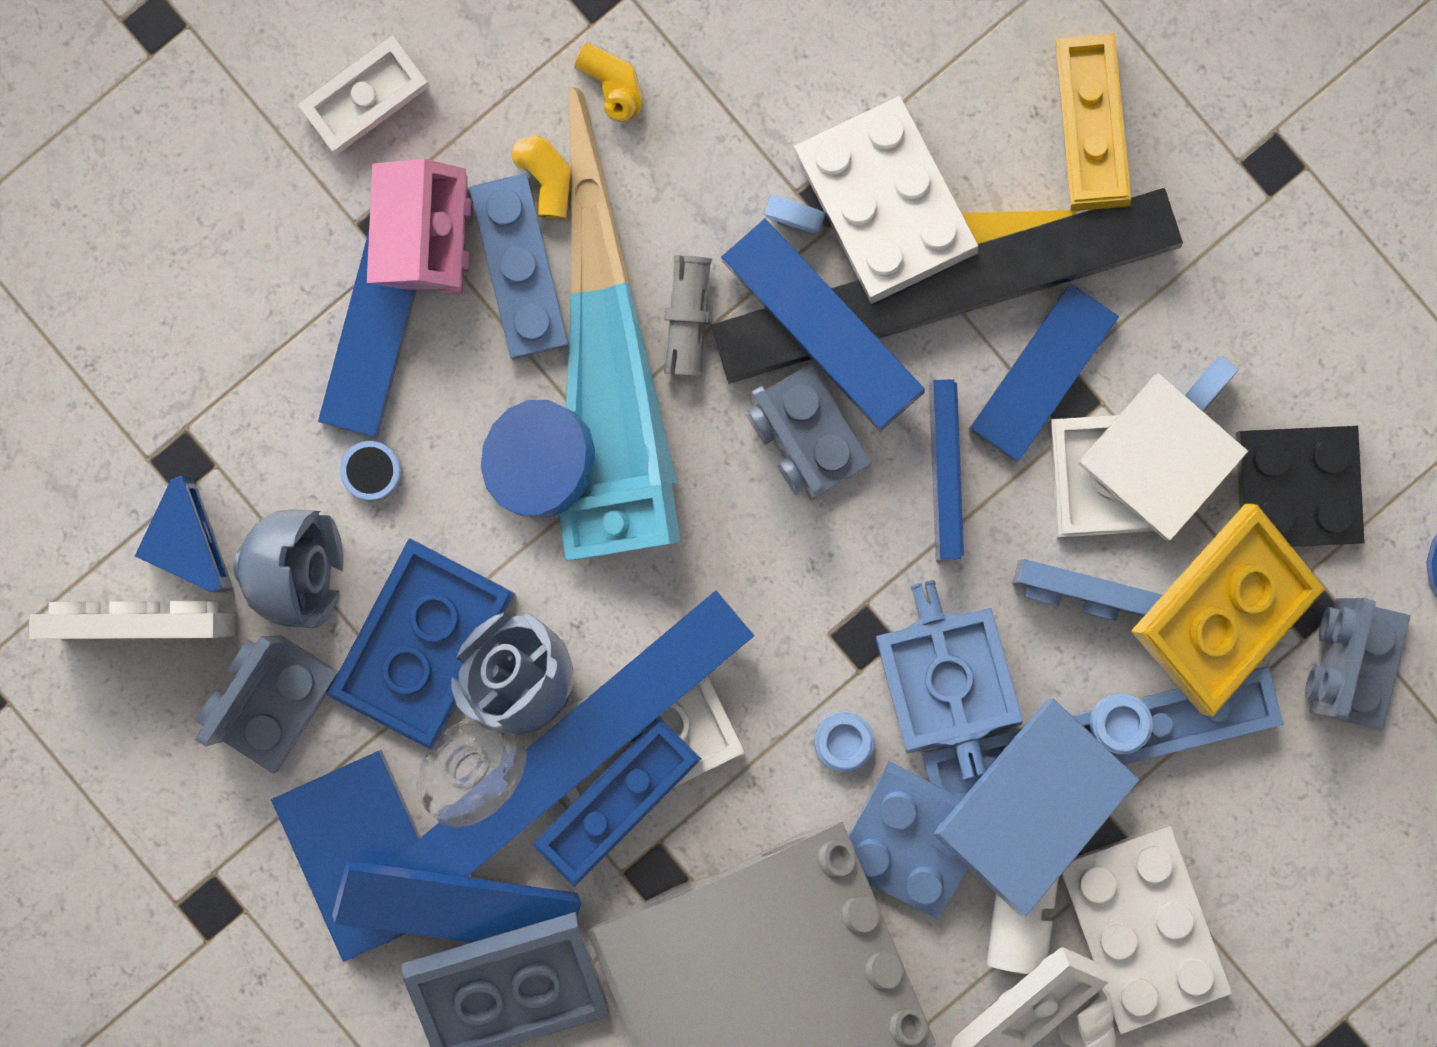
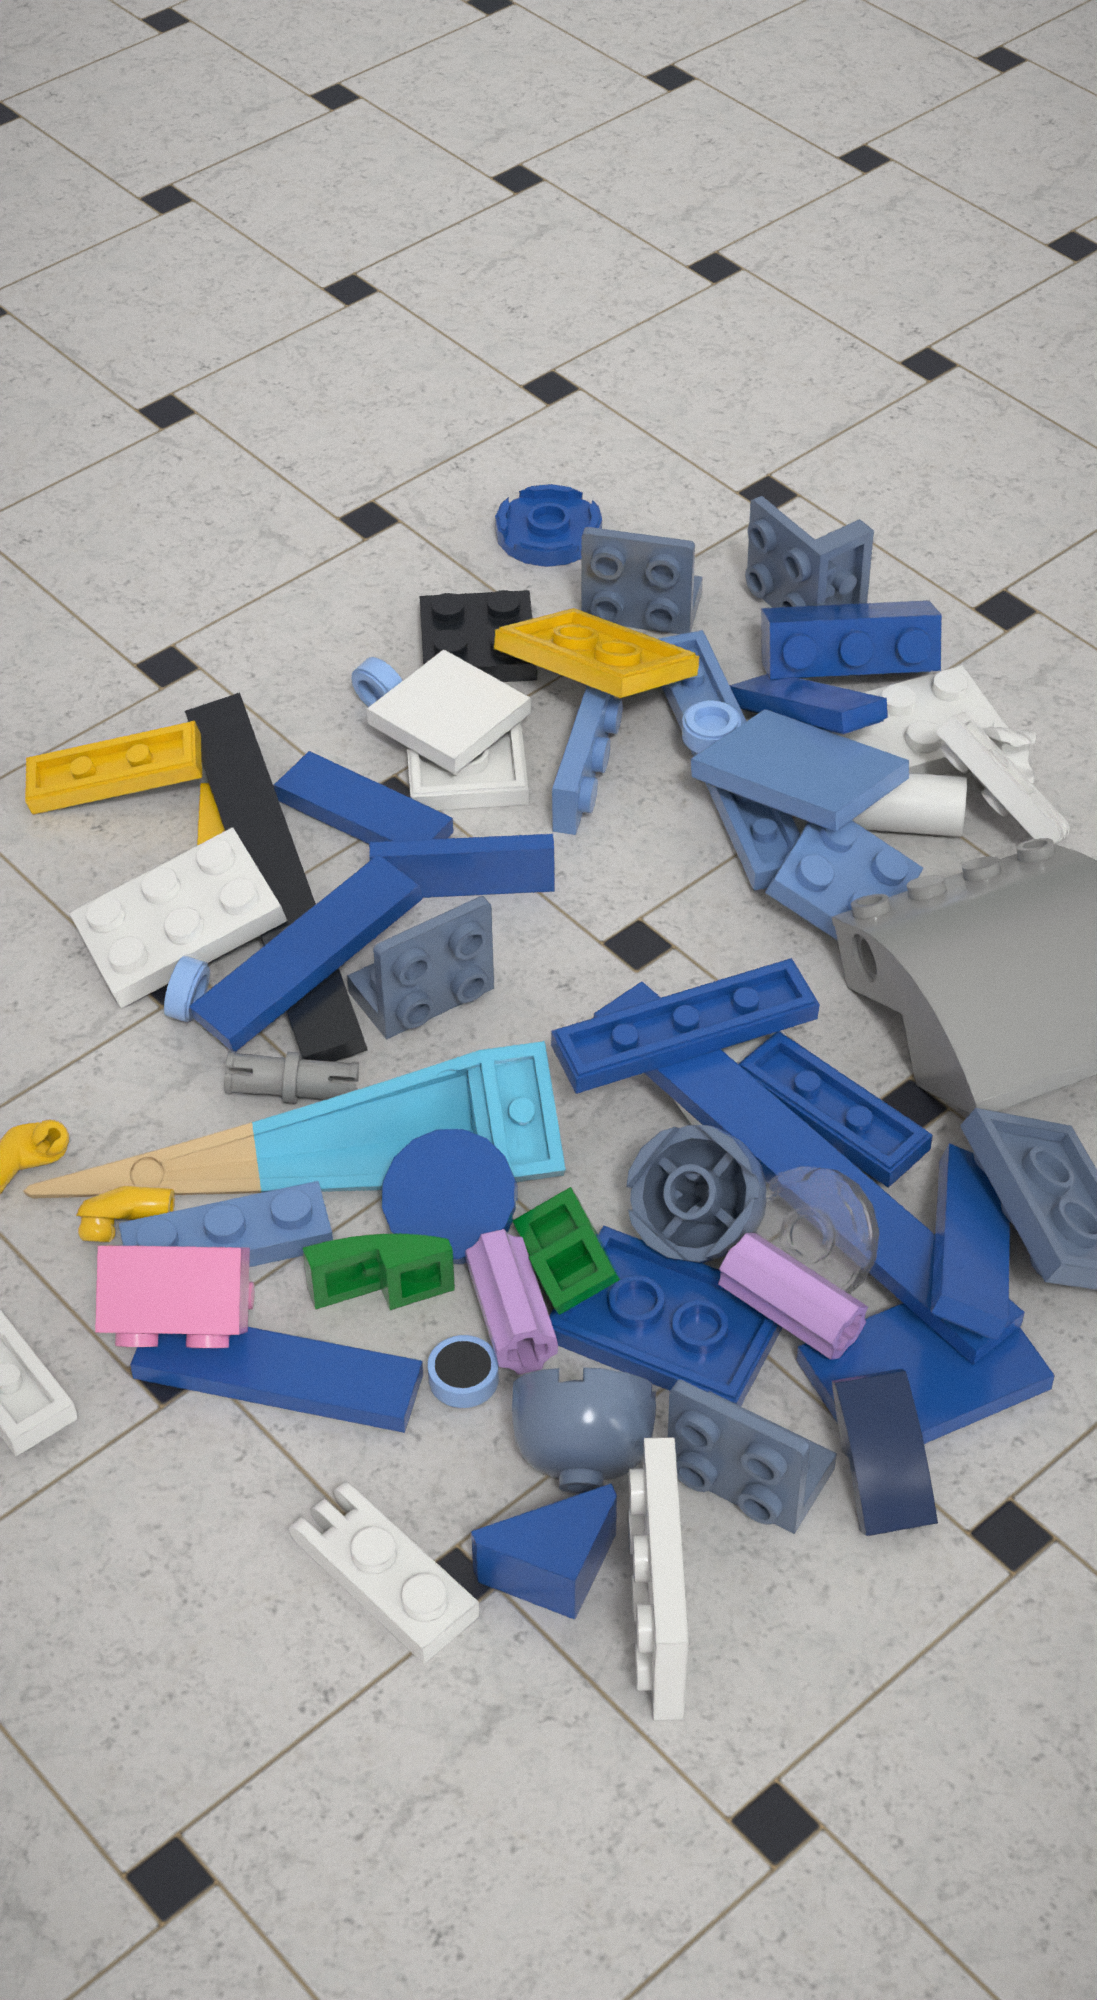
camera: 95 degrees left, 40 degrees down
(185, 409) = (386, 1573): none -> white hinge
(260, 811) = (884, 1452): none -> dark blue slope
(409, 749) = (792, 1295): none -> lavender axle
(425, 510) = (511, 1302): none -> lavender axle
(464, 413) = (399, 1265): none -> green slope
(472, 562) = (566, 1250): none -> green slope
(692, 673) = (684, 1025): none -> blue tile
(844, 741) = (746, 947): light blue tile -> none
(949, 680) = (678, 857): medium blue plate -> none
(1151, 824) = (811, 703): none -> blue tile
(1257, 879) = (851, 639): none -> blue brick
(1329, 835) = (796, 570): none -> sand blue bracket

